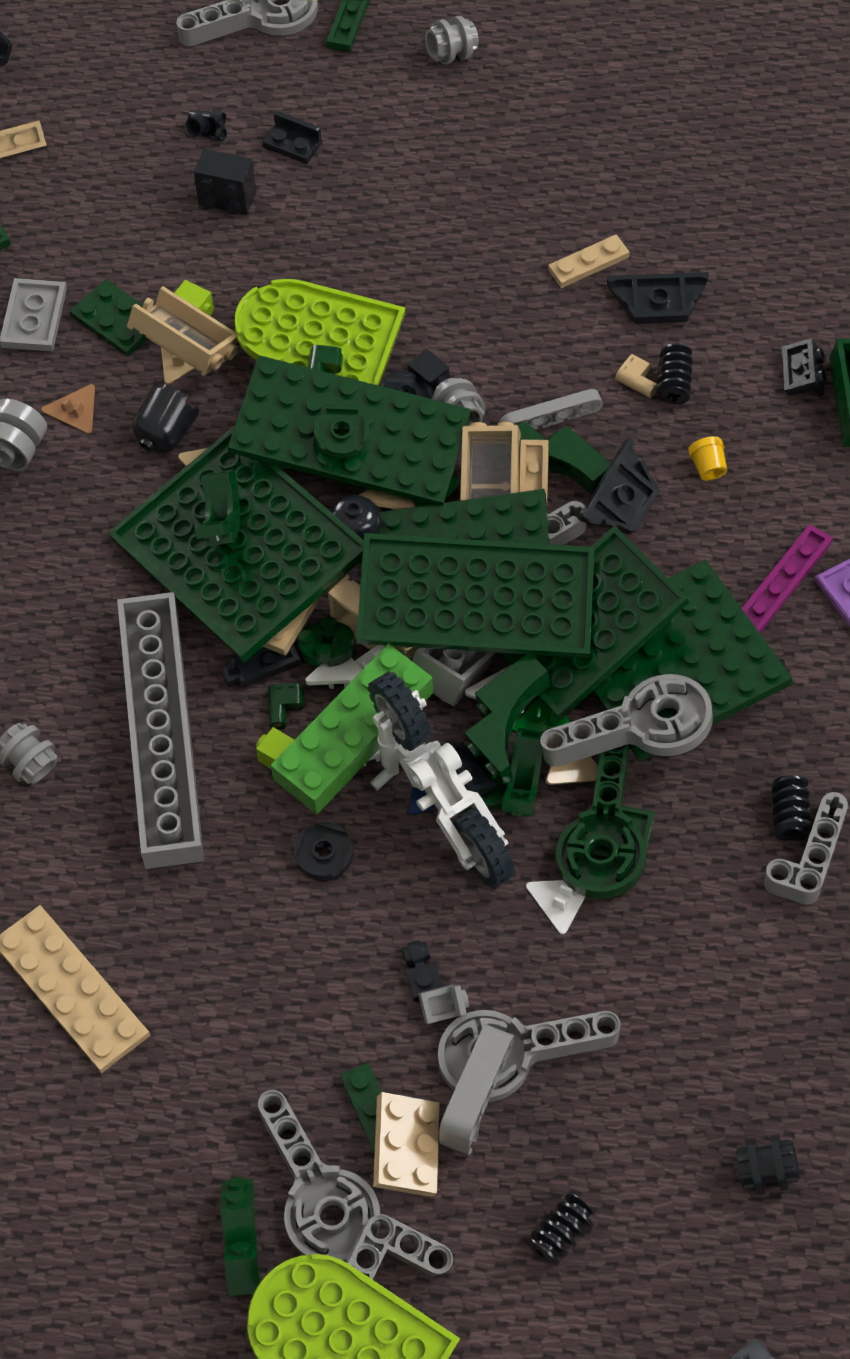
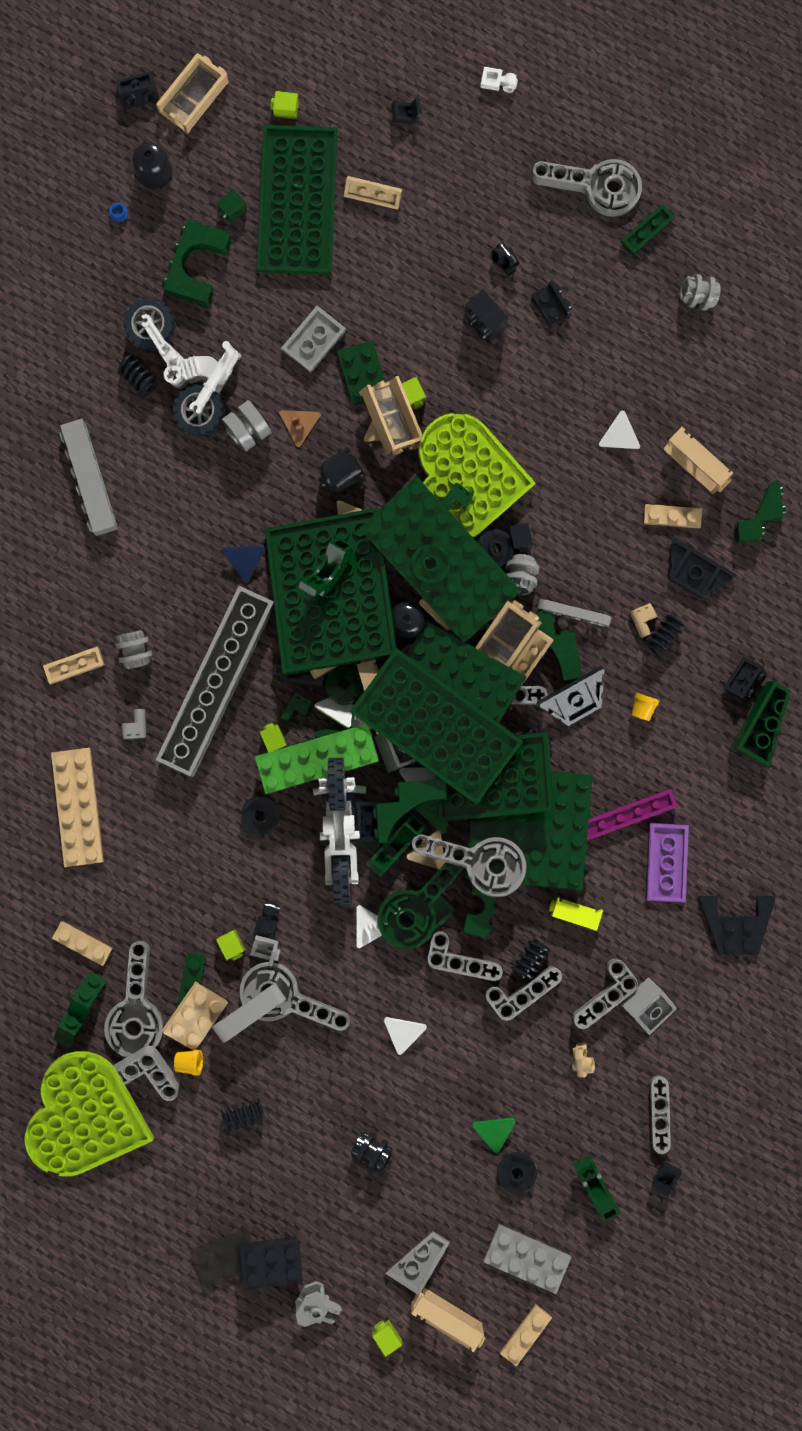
camera: 30 degrees right, 25 degrees up
(89, 848) = (137, 729): none -> light grey piece
(103, 578) = (244, 559): none -> dark blue piece
(187, 1153) = (82, 943): none -> tan plate
(393, 1026) = (231, 945): none -> lime brick
(438, 1209) = (189, 1062): none -> yellow piece
(467, 213) = (620, 434): none -> white piece
(576, 187) = (698, 461): none -> tan door
(694, 195) = (770, 510): none -> dark green arch
(695, 806) = (480, 923): none -> dark green arch
(698, 993) = (403, 1032): none -> white piece
(708, 859) = (465, 961): none -> light grey beam
(805, 724) = (575, 913): none -> neon yellow window

